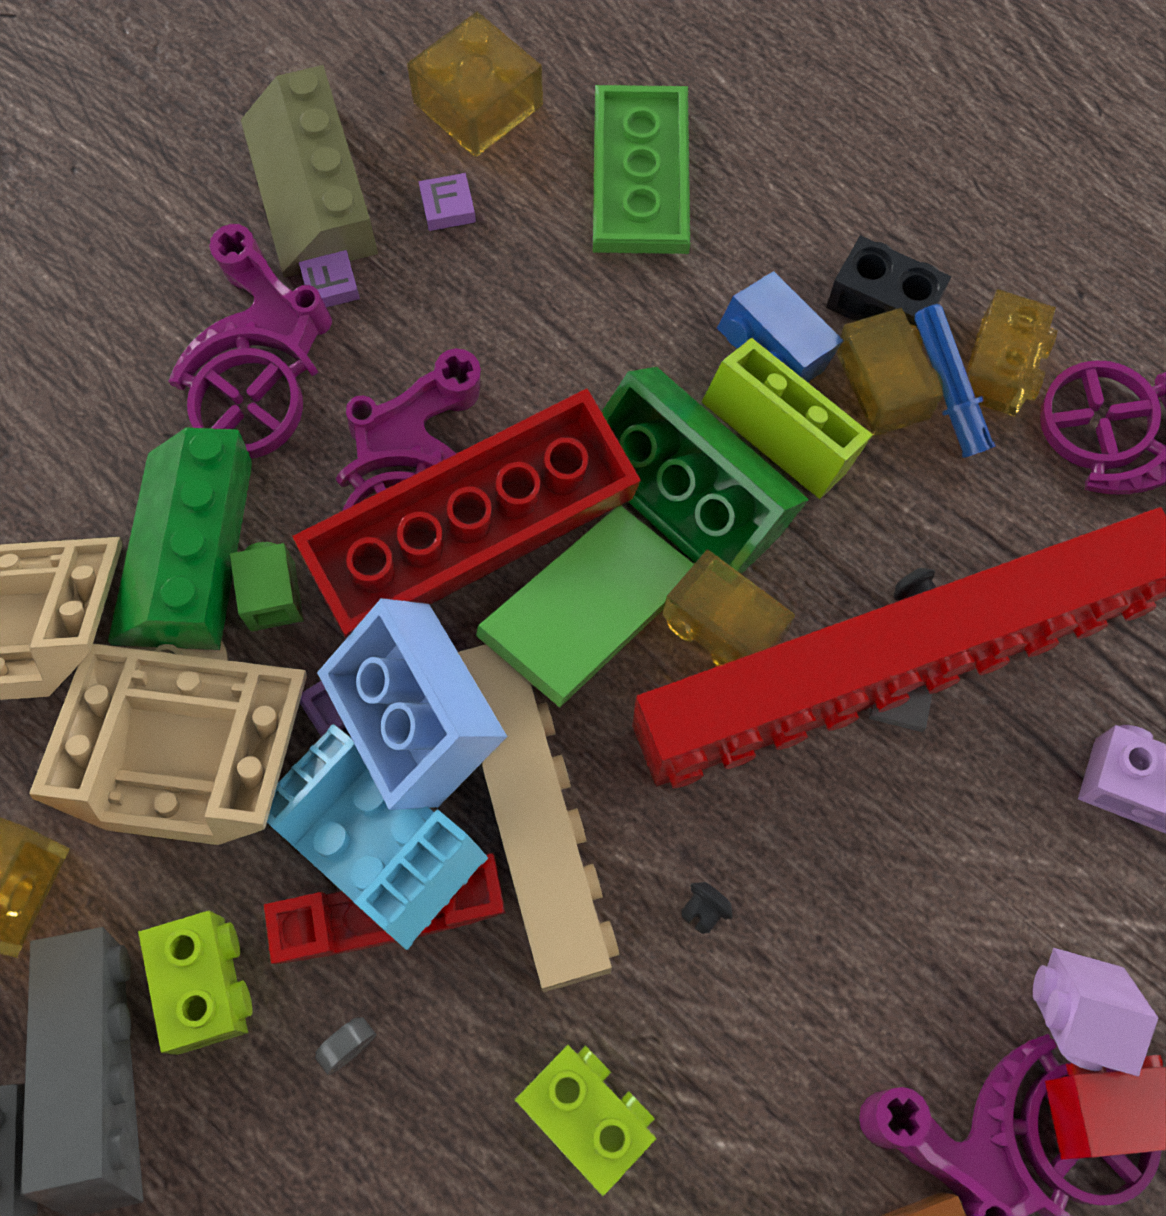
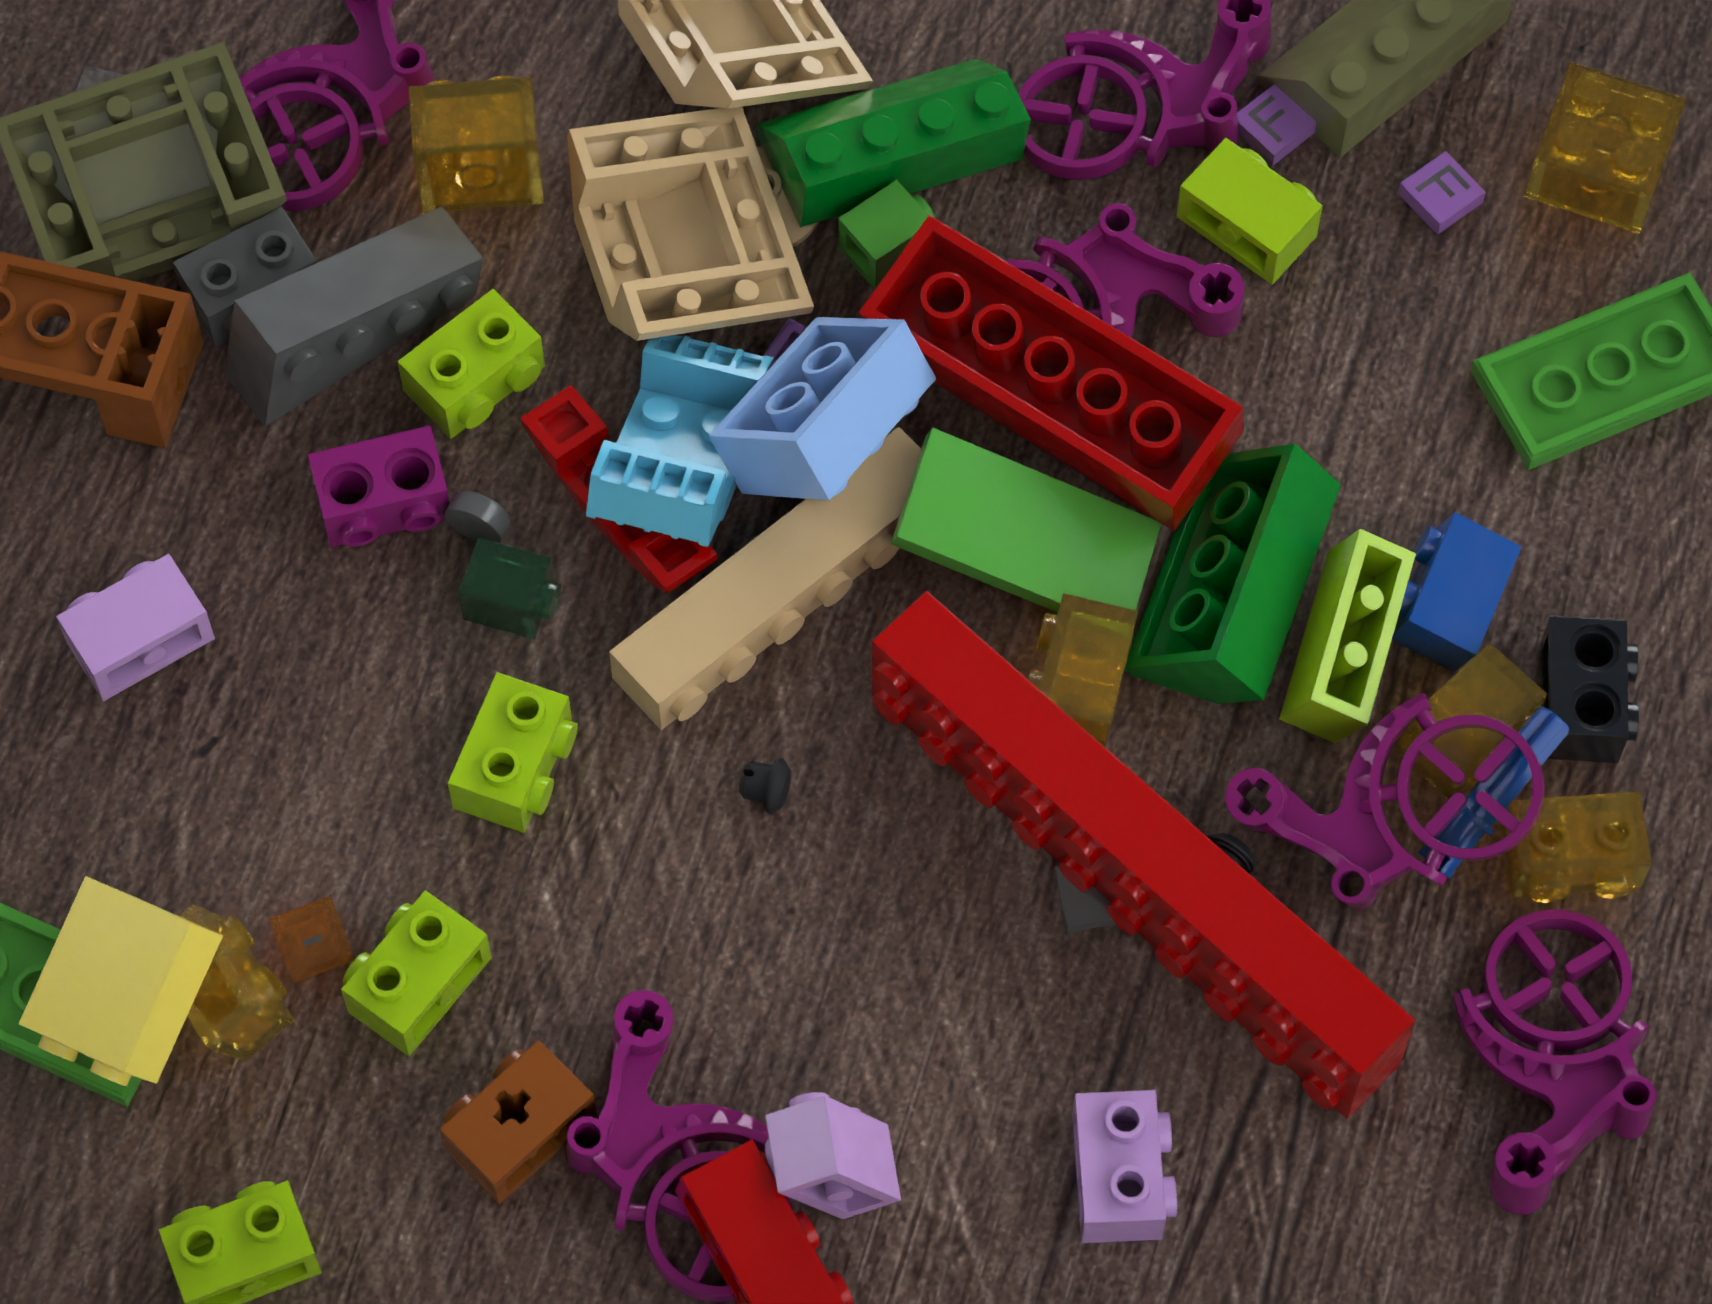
camera: 65 degrees right, 5 degrees down
(254, 1117) = (377, 471): none -> magenta brick
(398, 322) = (1249, 210): none -> lime brick
(427, 1048) = (508, 589): none -> clear green brick
(950, 485) = (1358, 833): none -> magenta piece

